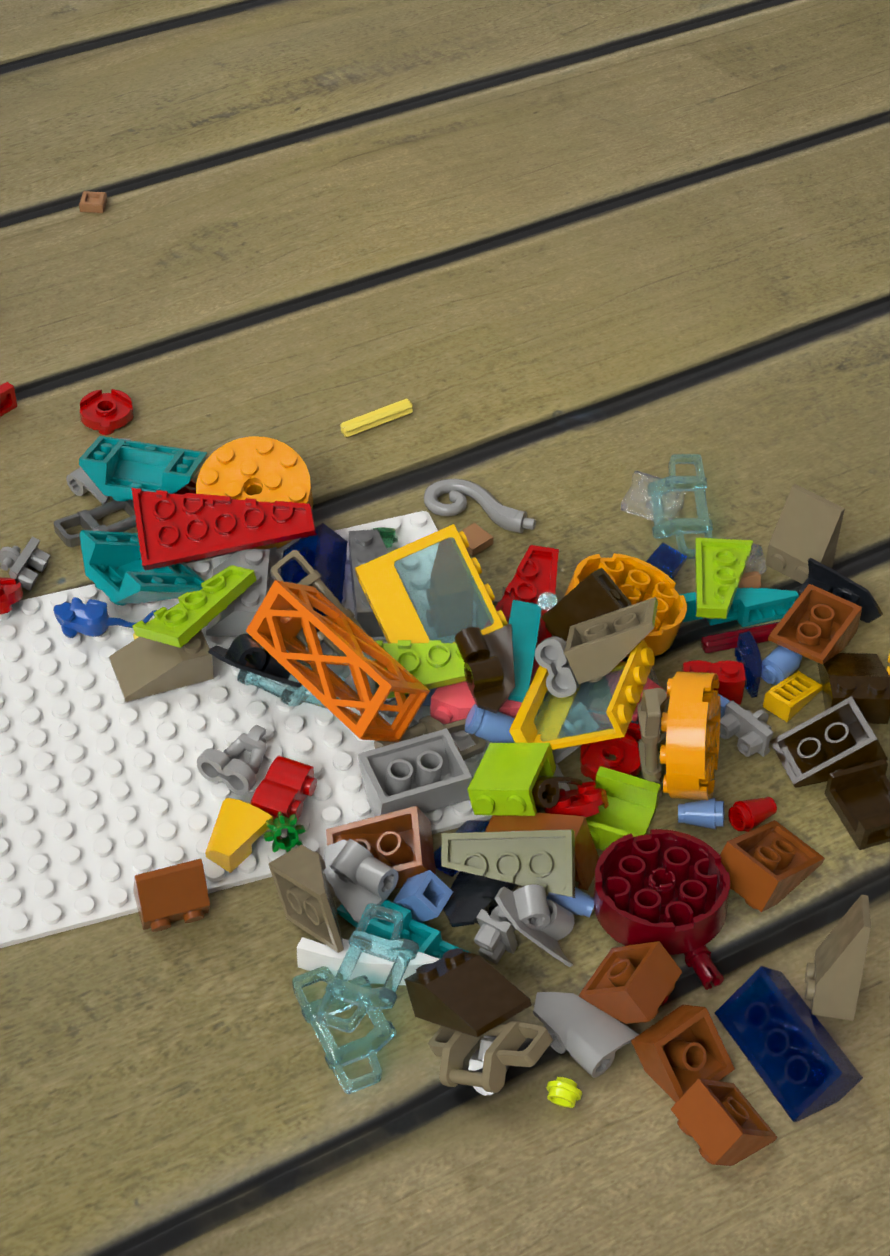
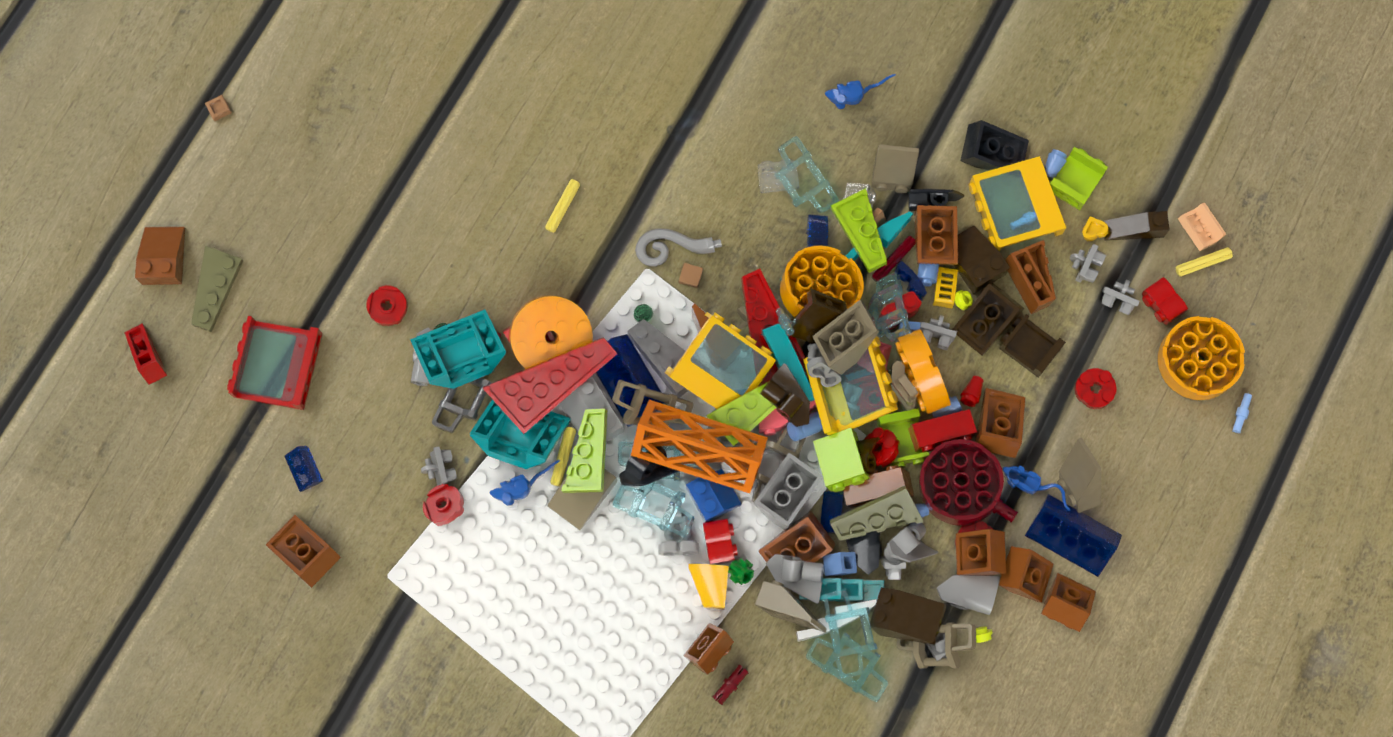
camera: 30 degrees left, 30 degrees up
(166, 960) = (730, 684): none -> dark red pin
(225, 694) = (663, 523): none -> clear light blue bar
(317, 739) = (712, 498): none -> blue slope
(659, 813) = (936, 431): none -> red brick
(696, 659) = (899, 315): none -> clear light blue bar
(761, 943) = (1029, 481): none -> blue animal
(803, 466) = (851, 93): none -> blue animal
(806, 710) = (963, 299): none -> neon yellow plate

